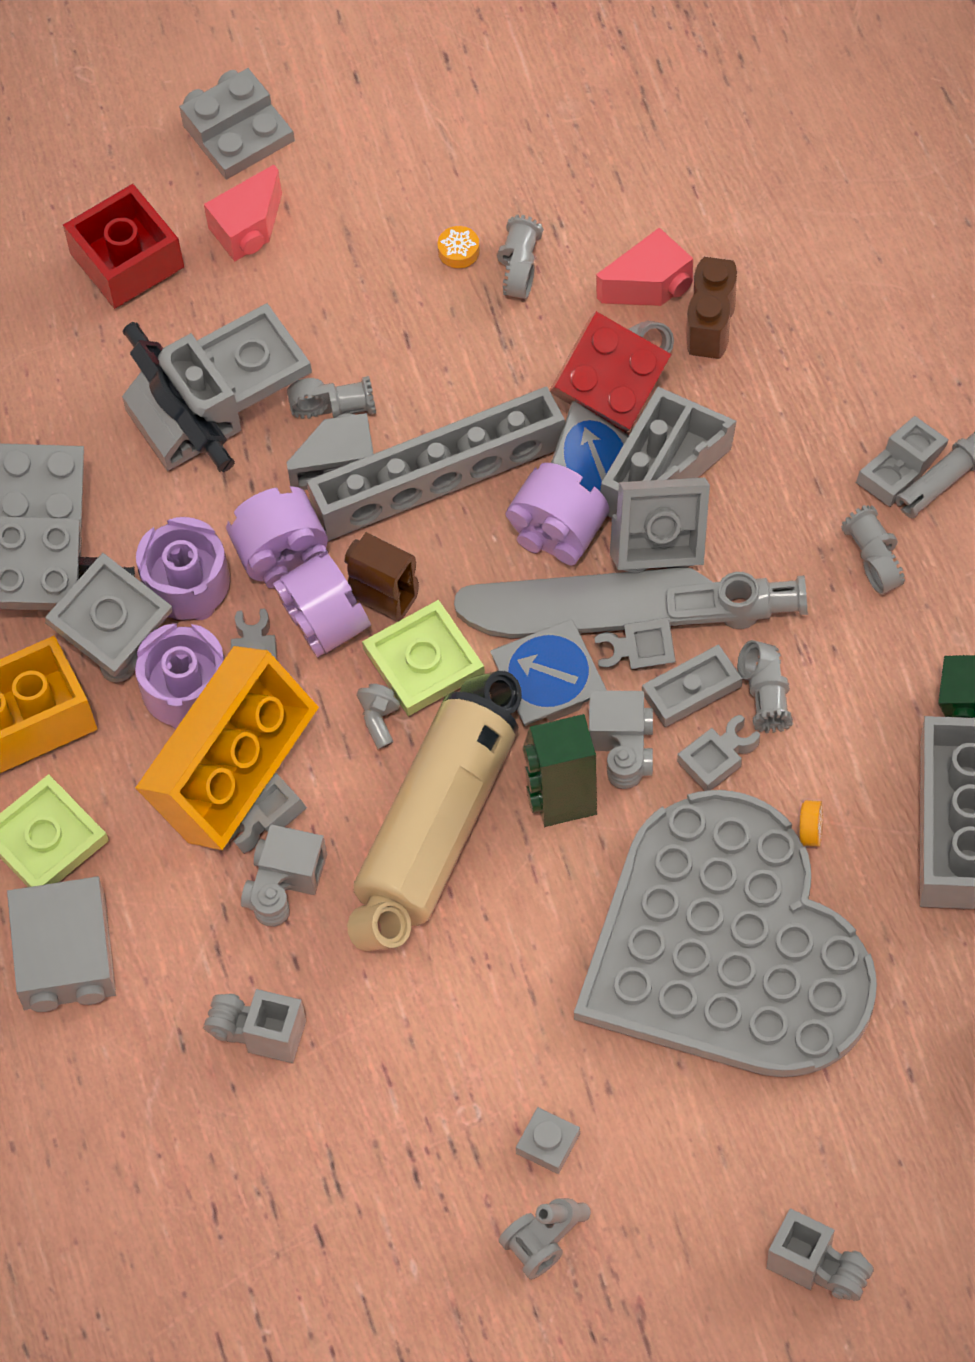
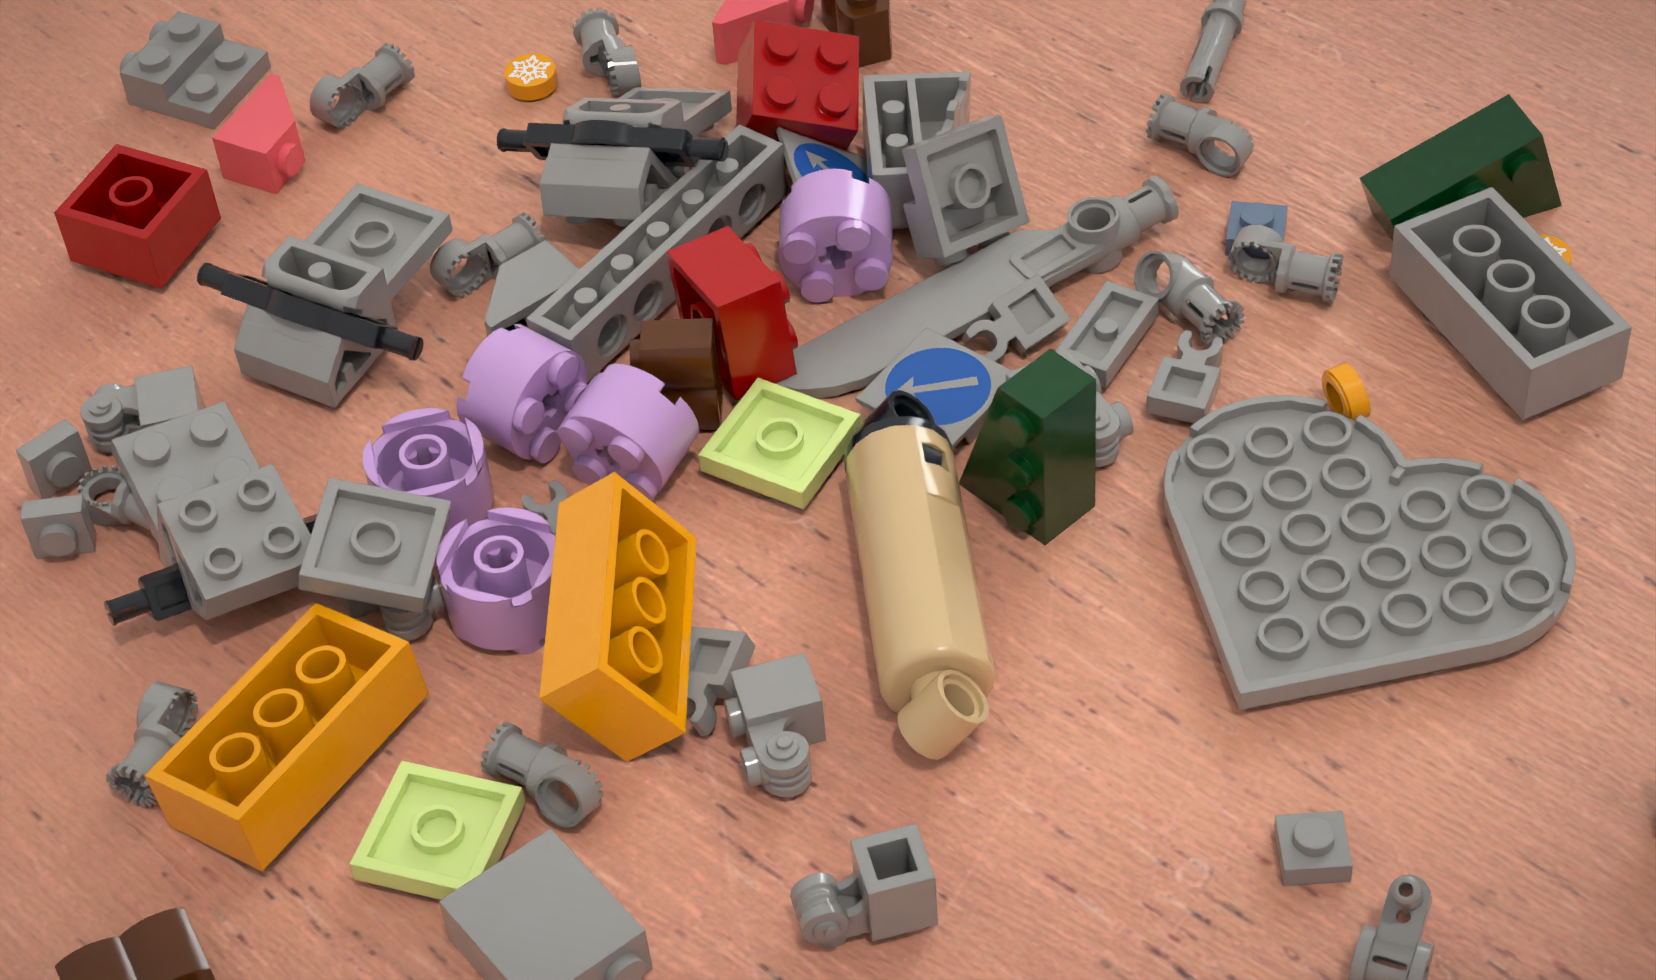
camera: 30 degrees left, 15 degrees down
(50, 415) = (152, 400): none -> light grey brick
(127, 828) = (540, 771): none -> light grey connector
(334, 200) = (360, 87): none -> light grey connector
(378, 702) = (758, 507): light grey plate -> none
(447, 543) = (747, 301): none -> red brick
(468, 359) = (621, 152): none -> light grey piece
(851, 700) = (1287, 266): none -> light grey connector
(859, 652) = (1255, 213): none -> sand blue plate
(903, 461) = (1158, 55): light grey slope -> none

